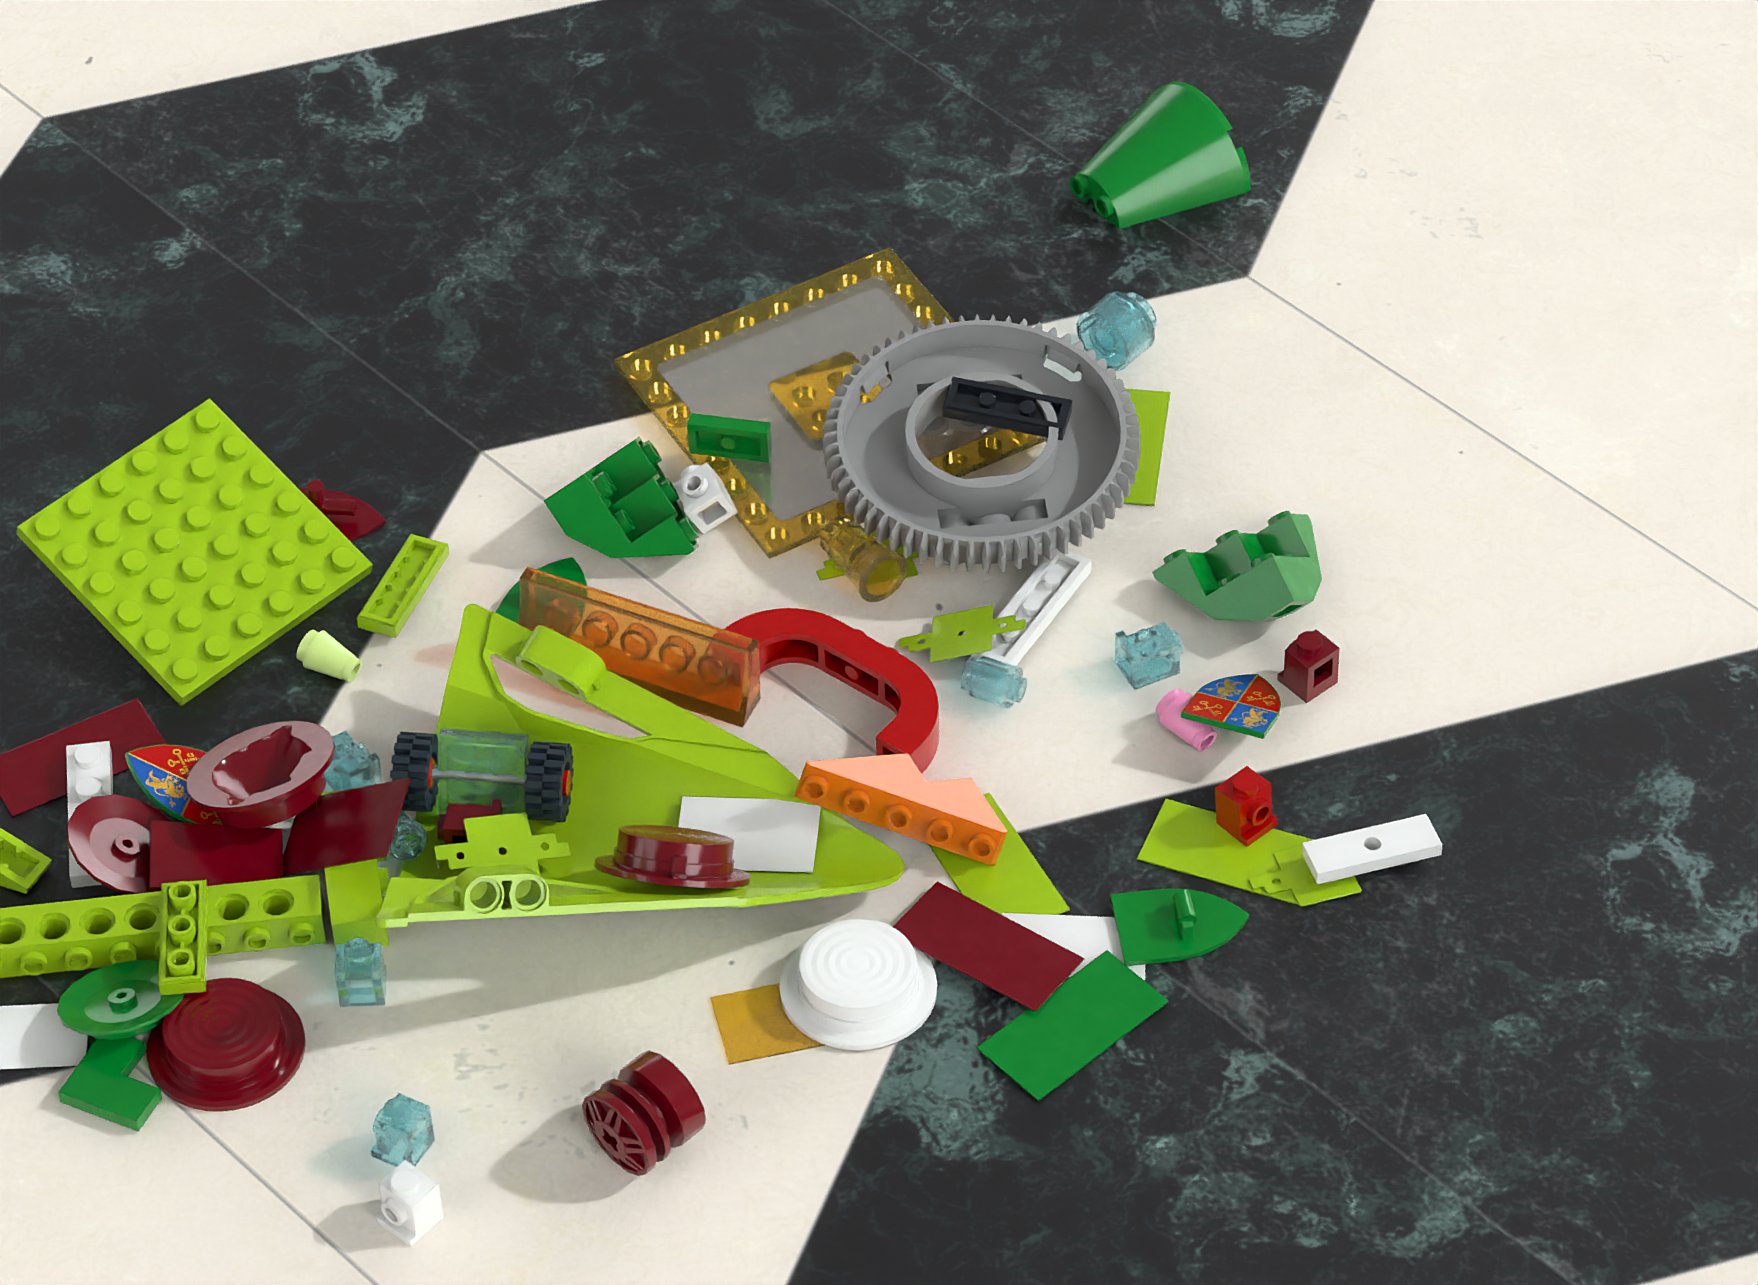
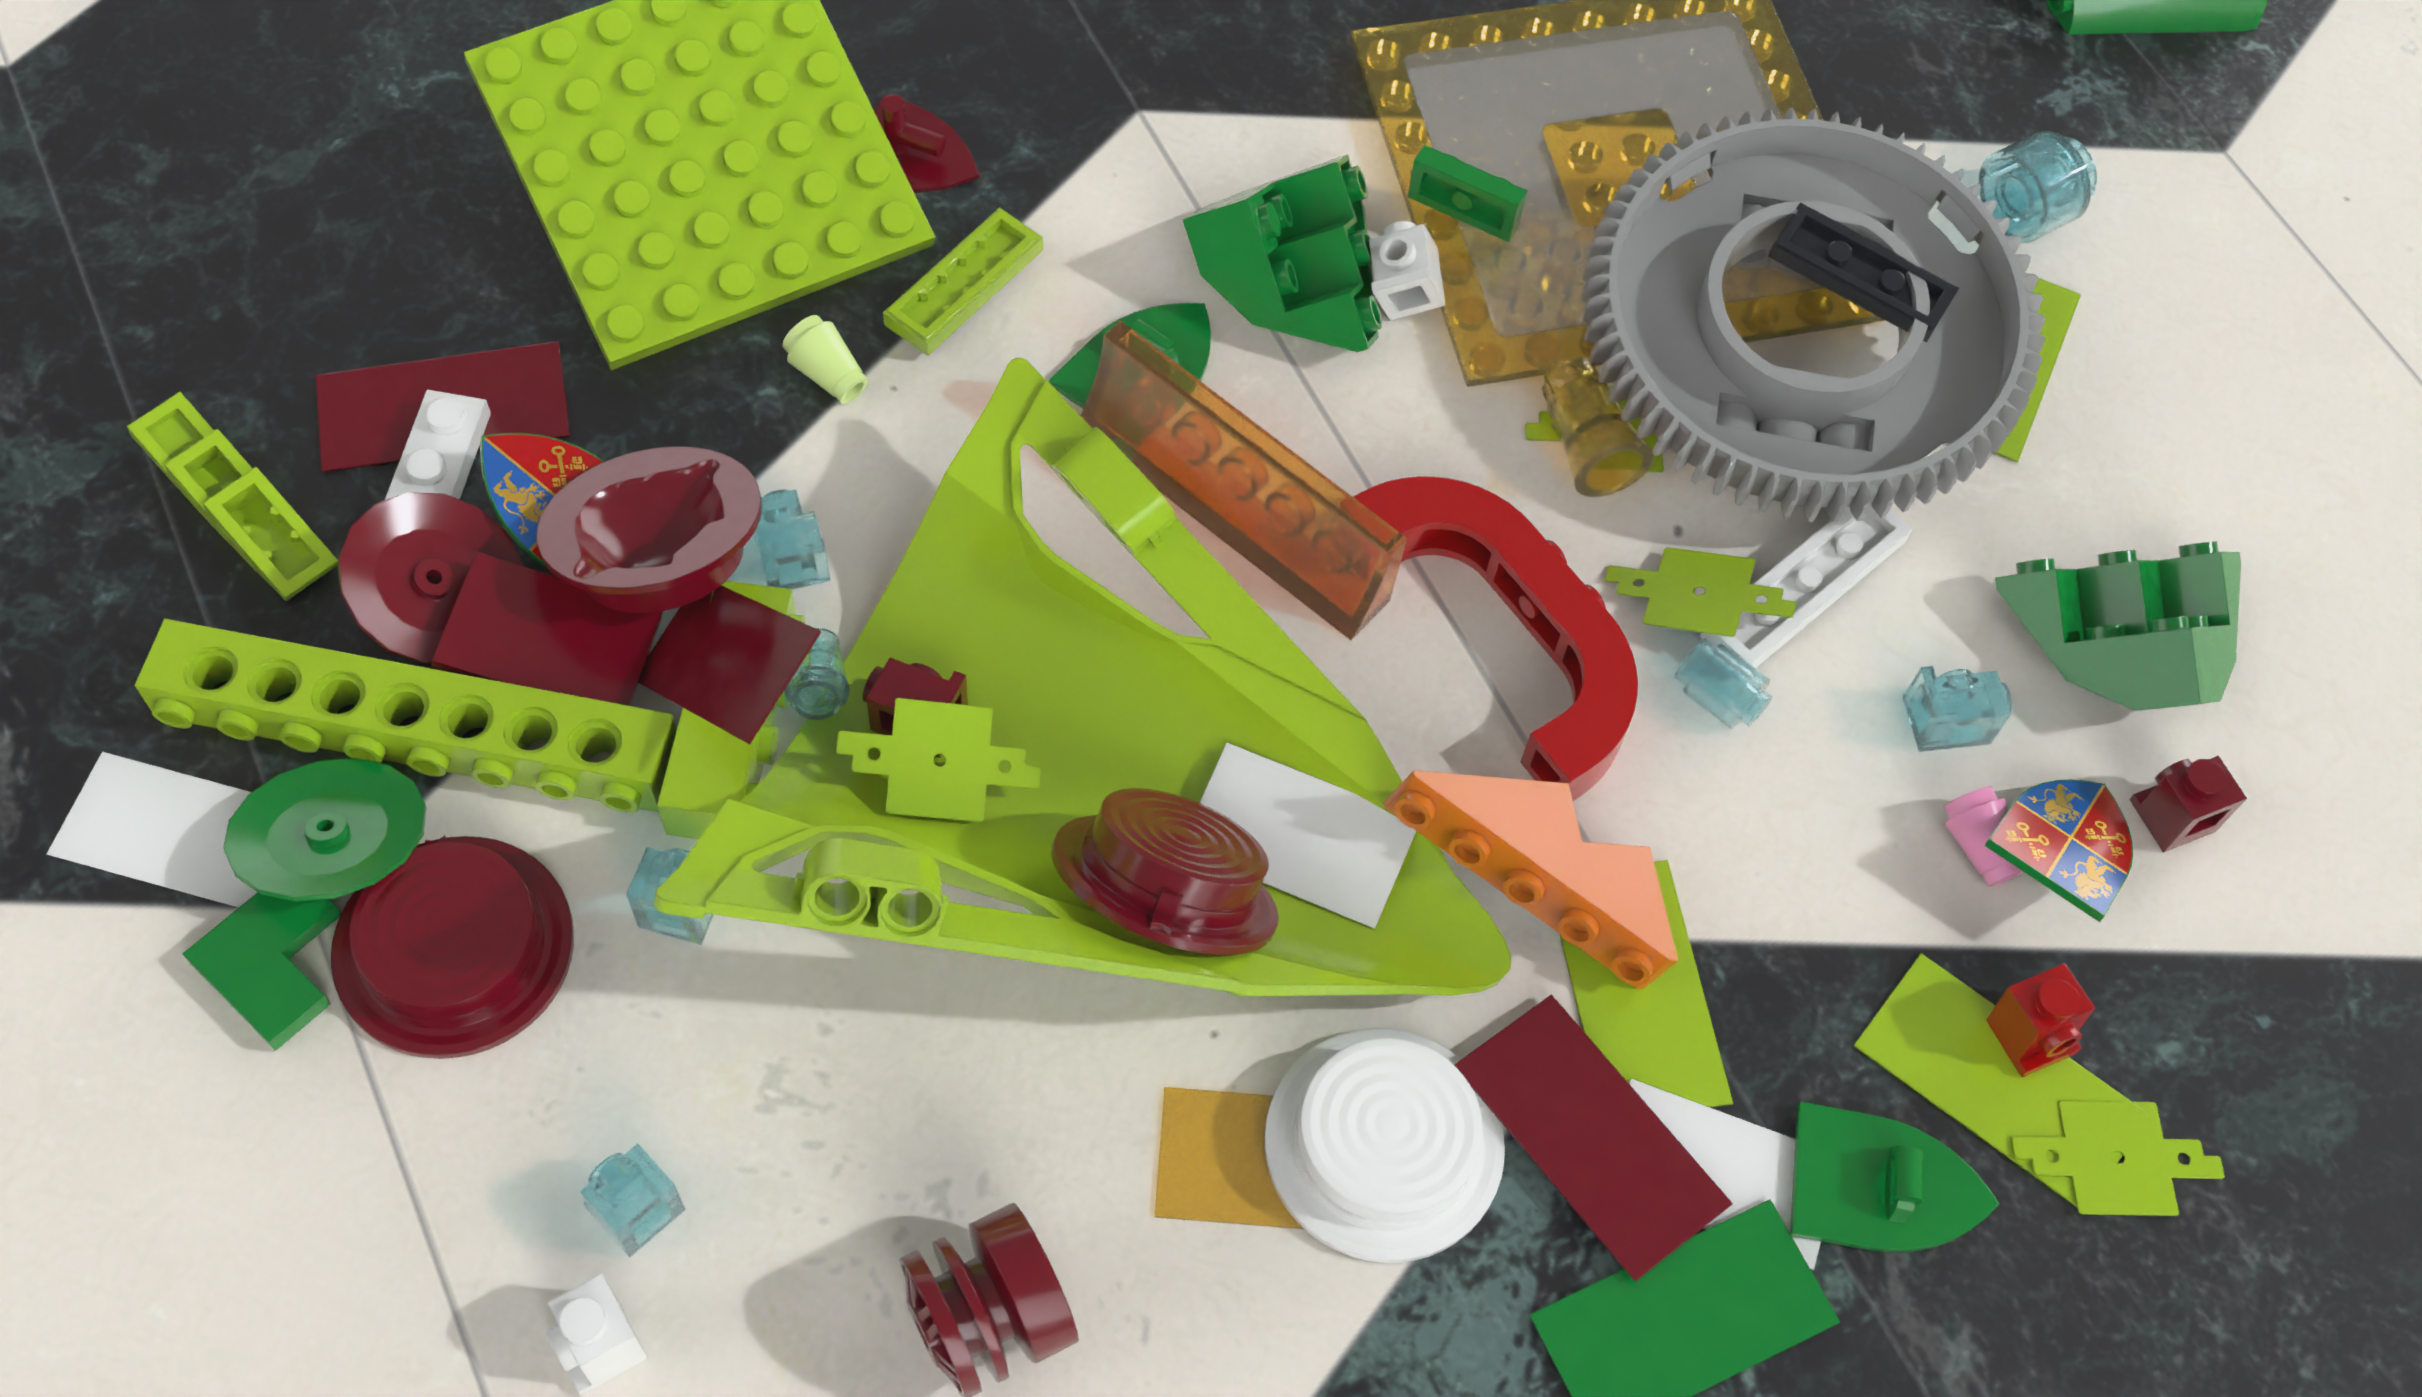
camera: 10 degrees right, 15 degrees up
(183, 937) = (429, 794): lime tile -> none
(484, 767) = (951, 623): plate -> none
(1371, 848) = (2246, 1154): white tile -> none

